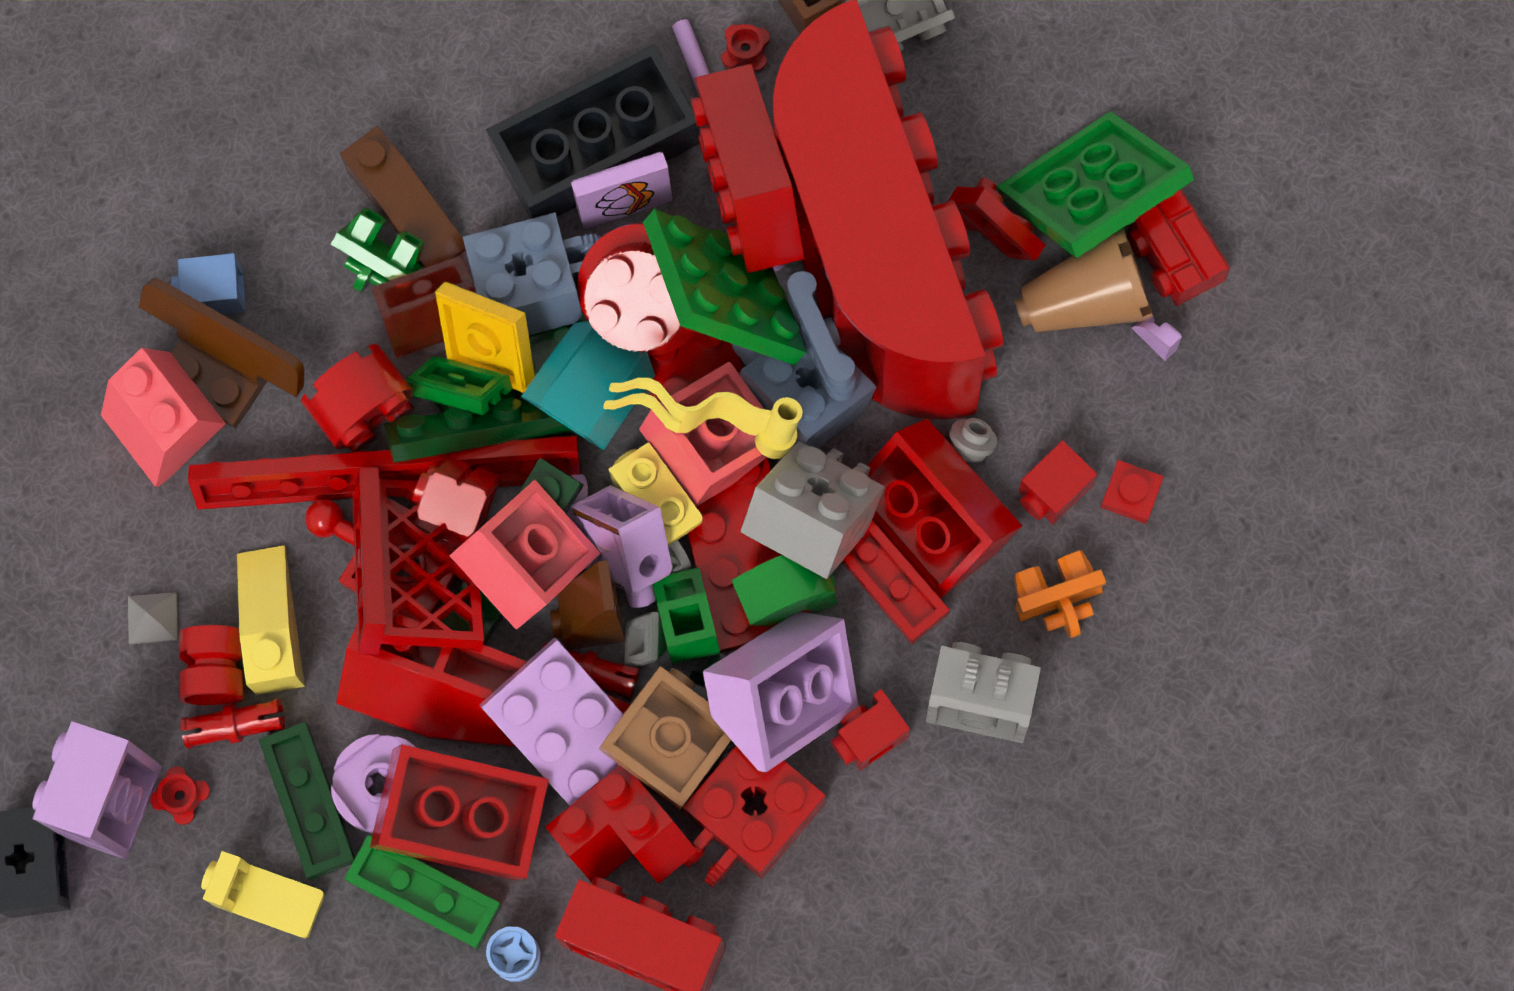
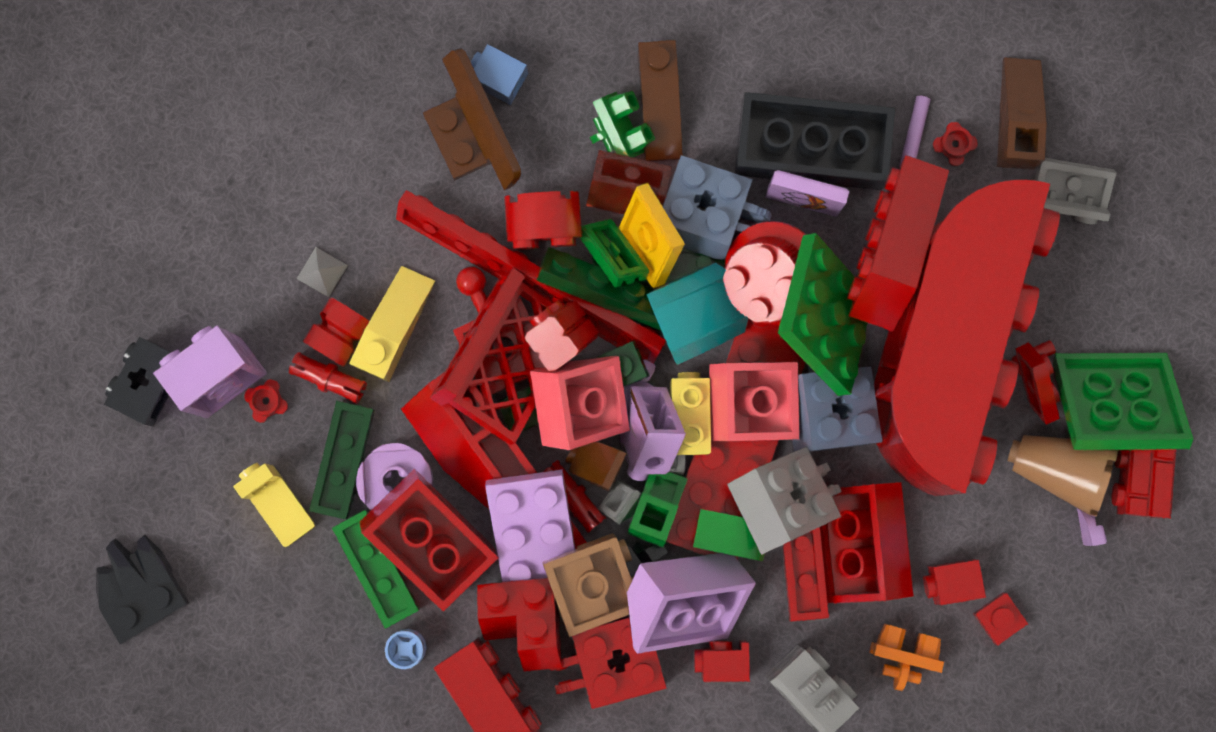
camera: 30 degrees right, 10 degrees up
(158, 413) = (410, 140): coral slope -> none
(773, 430) = (791, 433): light yellow flag -> none
(820, 337) = (867, 389): sand blue plate -> none
(972, 439) = (921, 514): light grey plate -> none

